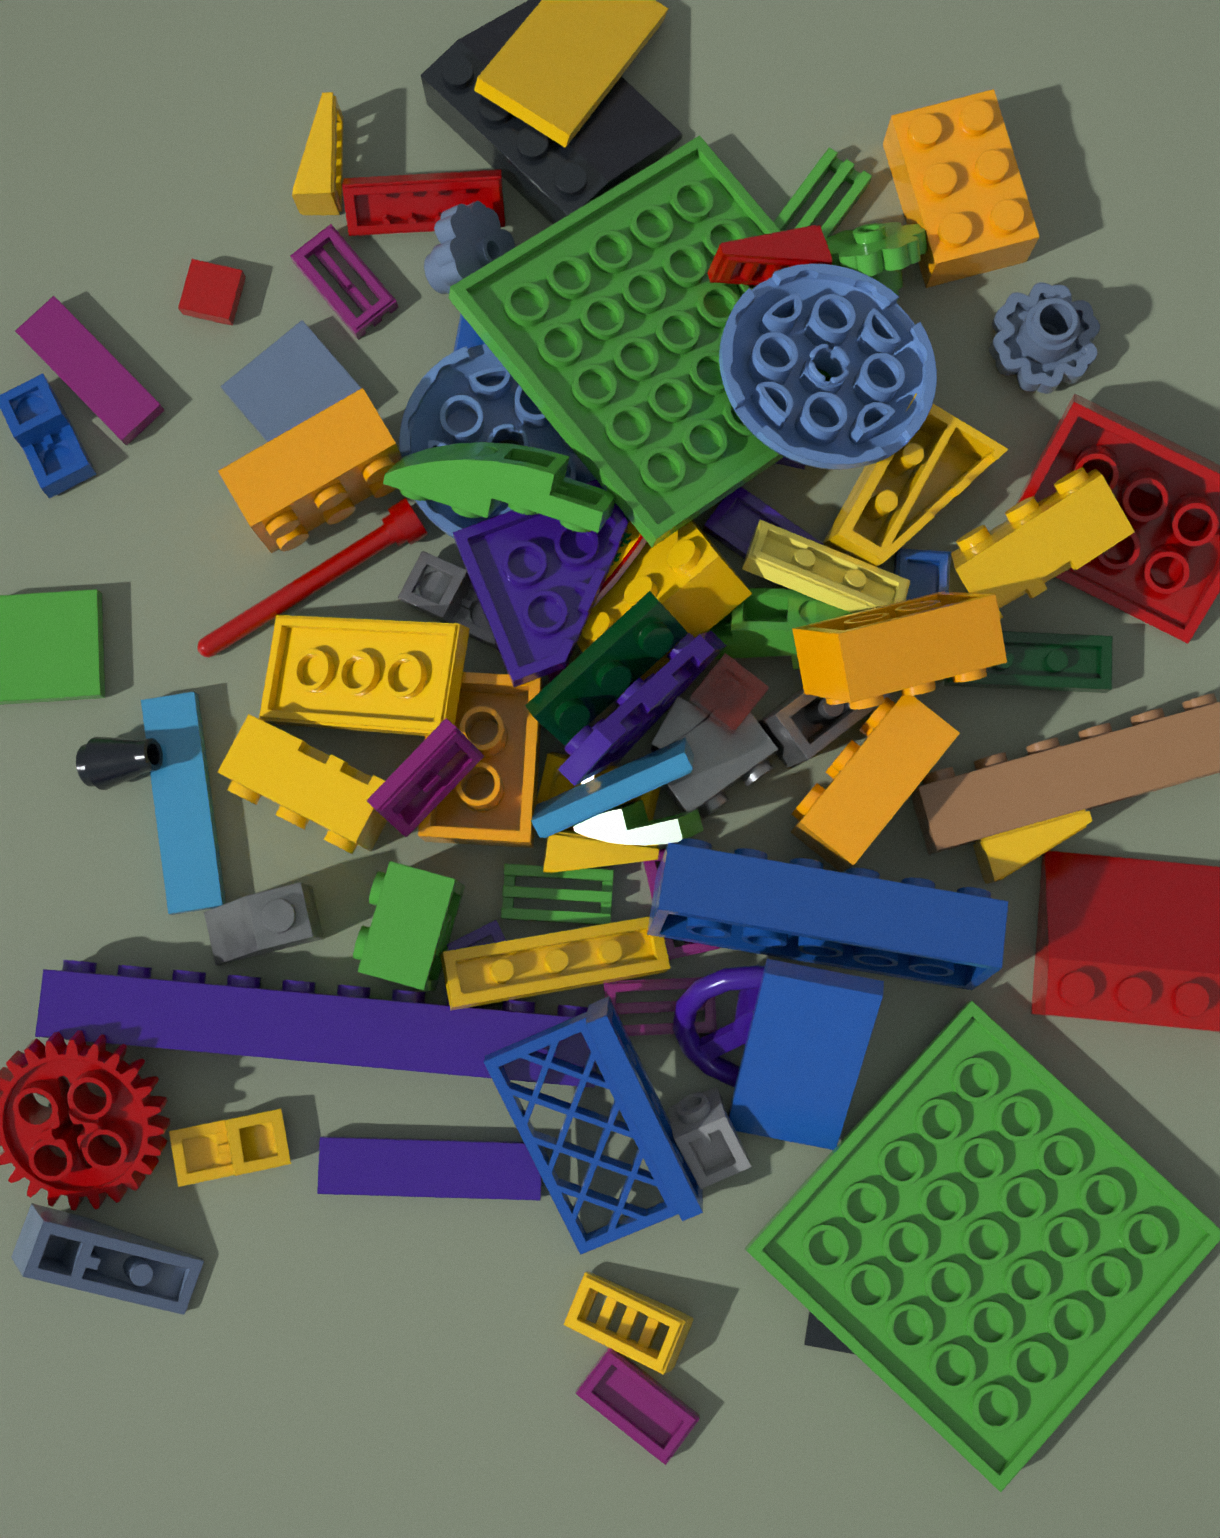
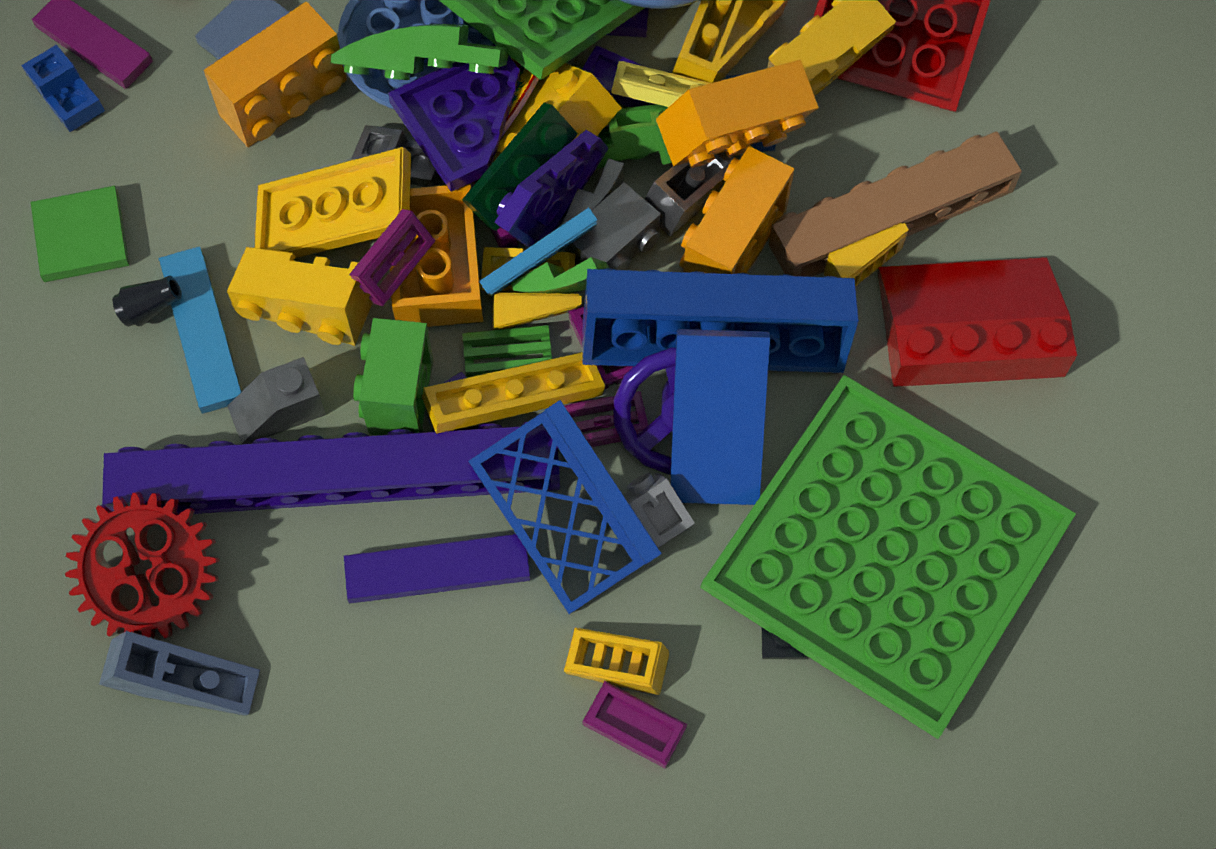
camera: 15 degrees left, 15 degrees down
(229, 1147) = (270, 579): yellow slope -> none
(398, 527) = (346, 111): red piece -> none
(729, 693) = (616, 175): clear red plate -> none
(1050, 663) = (843, 137): dark green plate -> none

